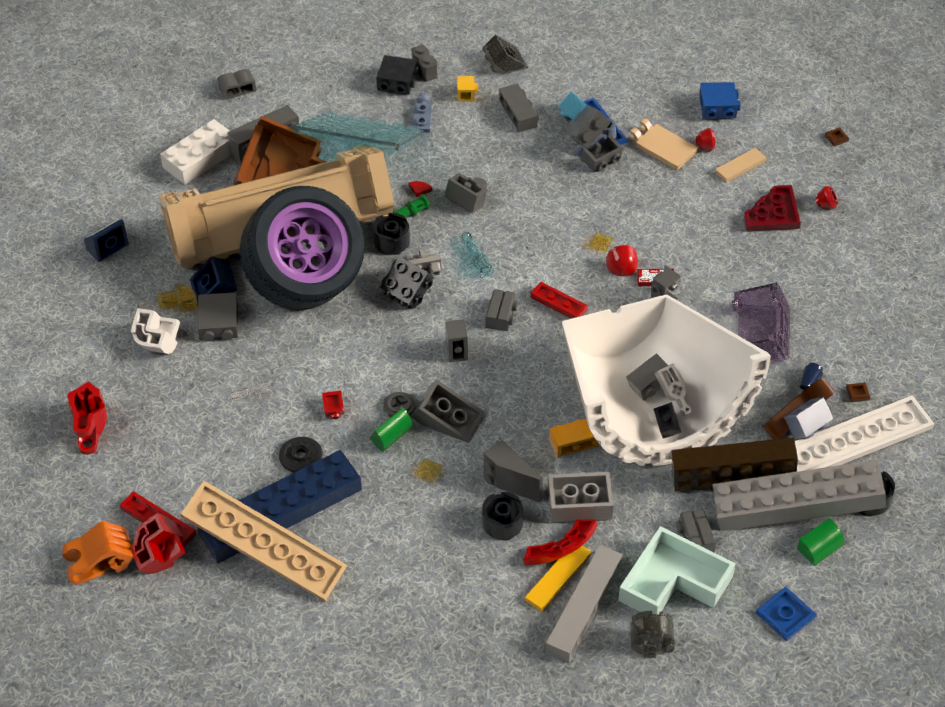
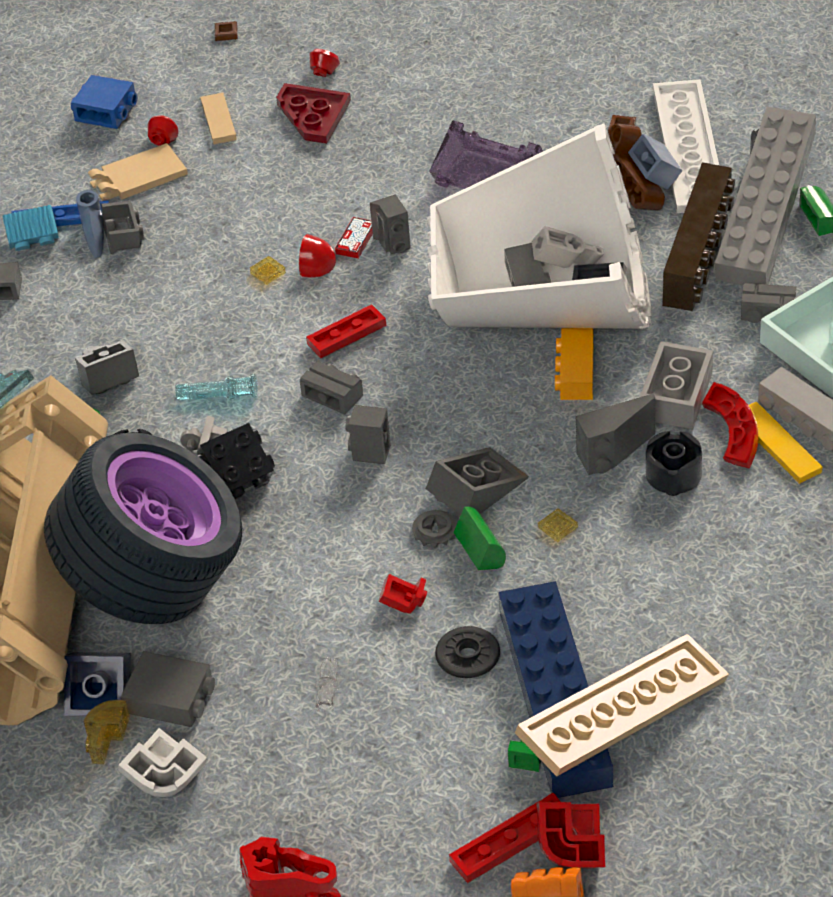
camera: 65 degrees left, 5 degrees down
(587, 126) = (79, 215): dark grey brick -> none

